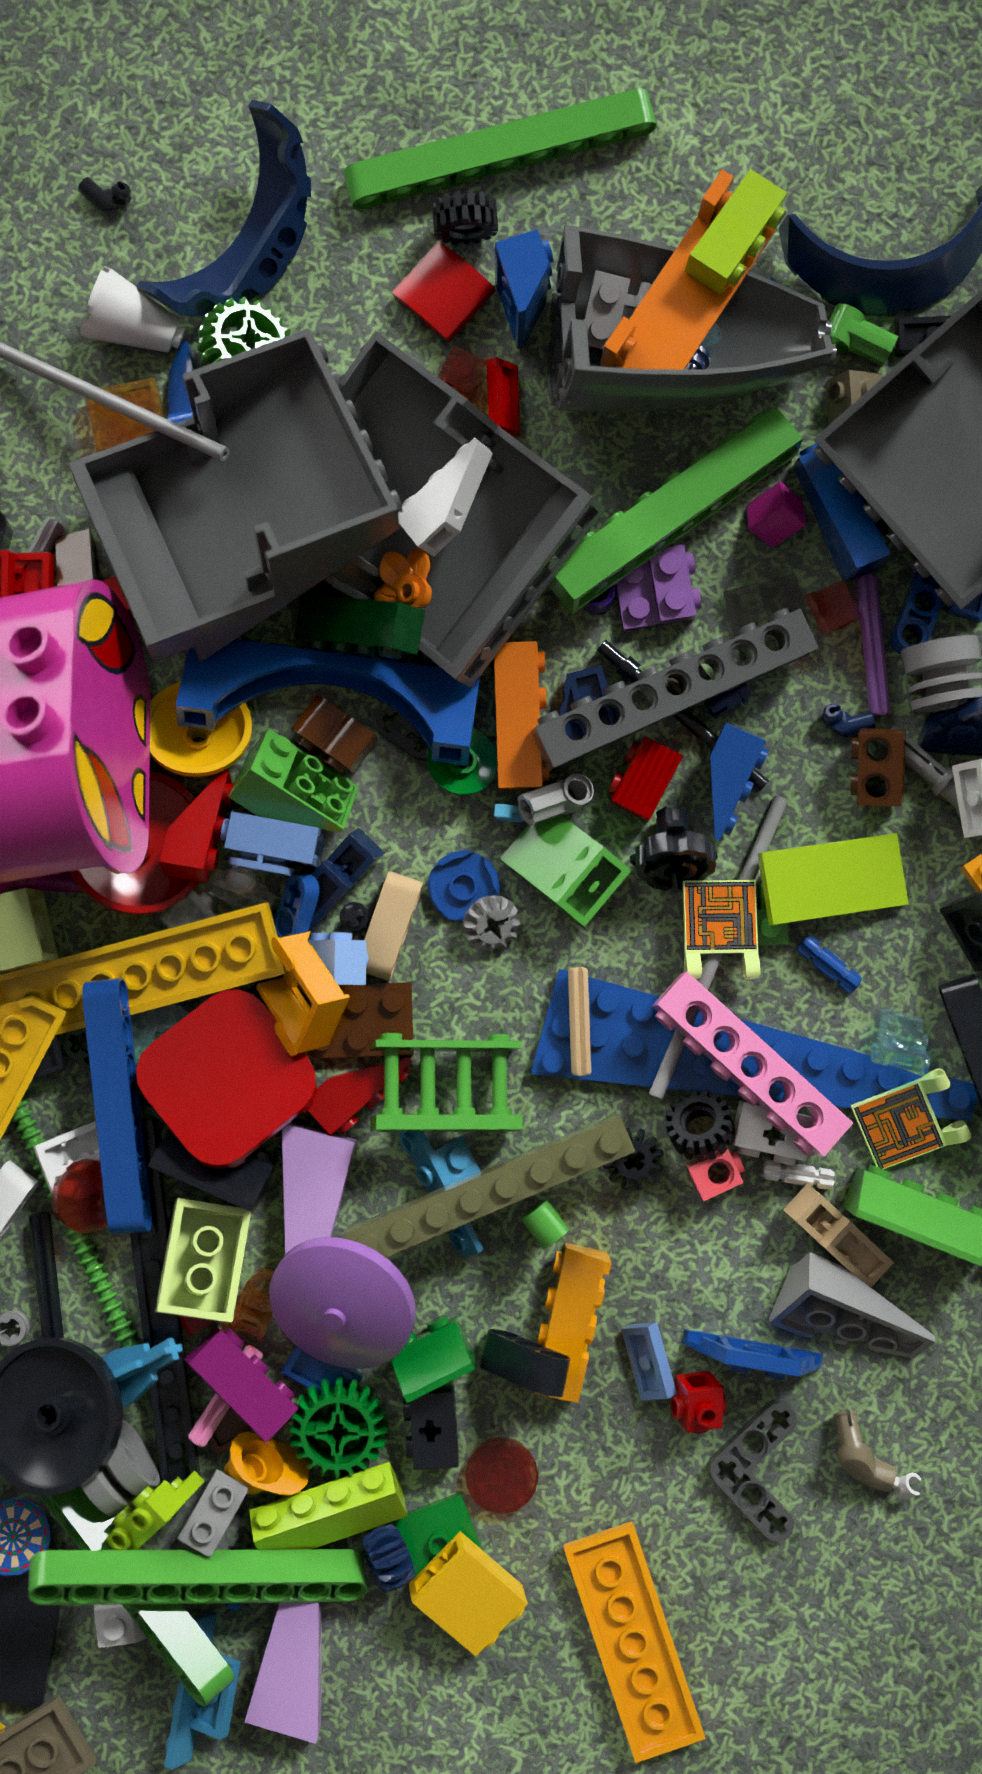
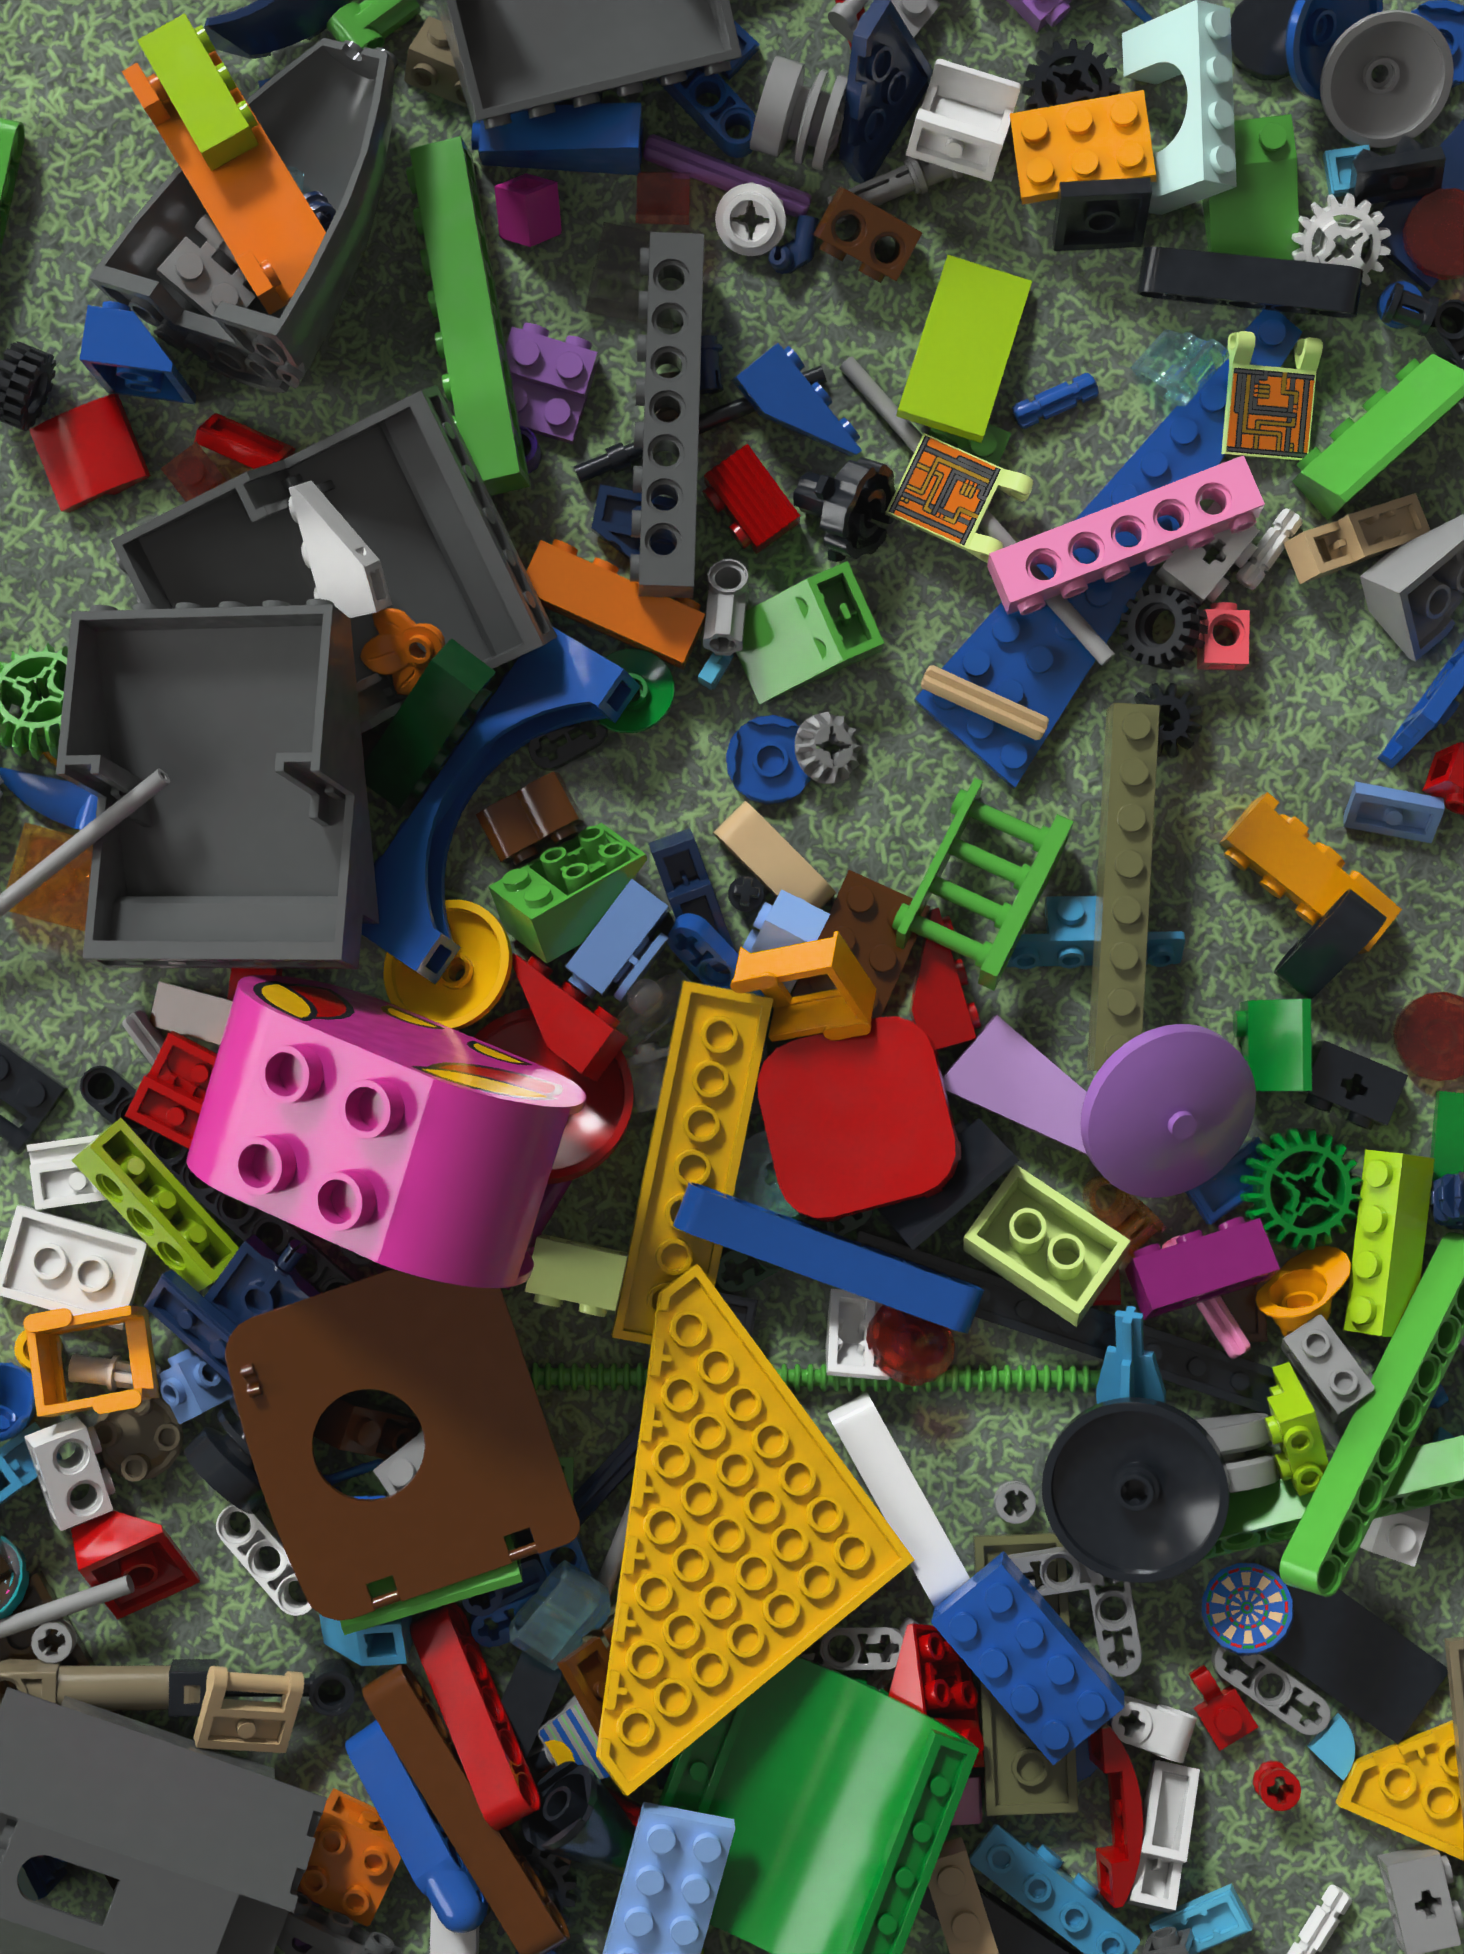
camera: 70 degrees left, 0 degrees up
(46, 1275) = (974, 1435): black axle -> none
(544, 1223) = (1188, 847): bright green piece -> none
(835, 671) = (736, 233): none -> white gear

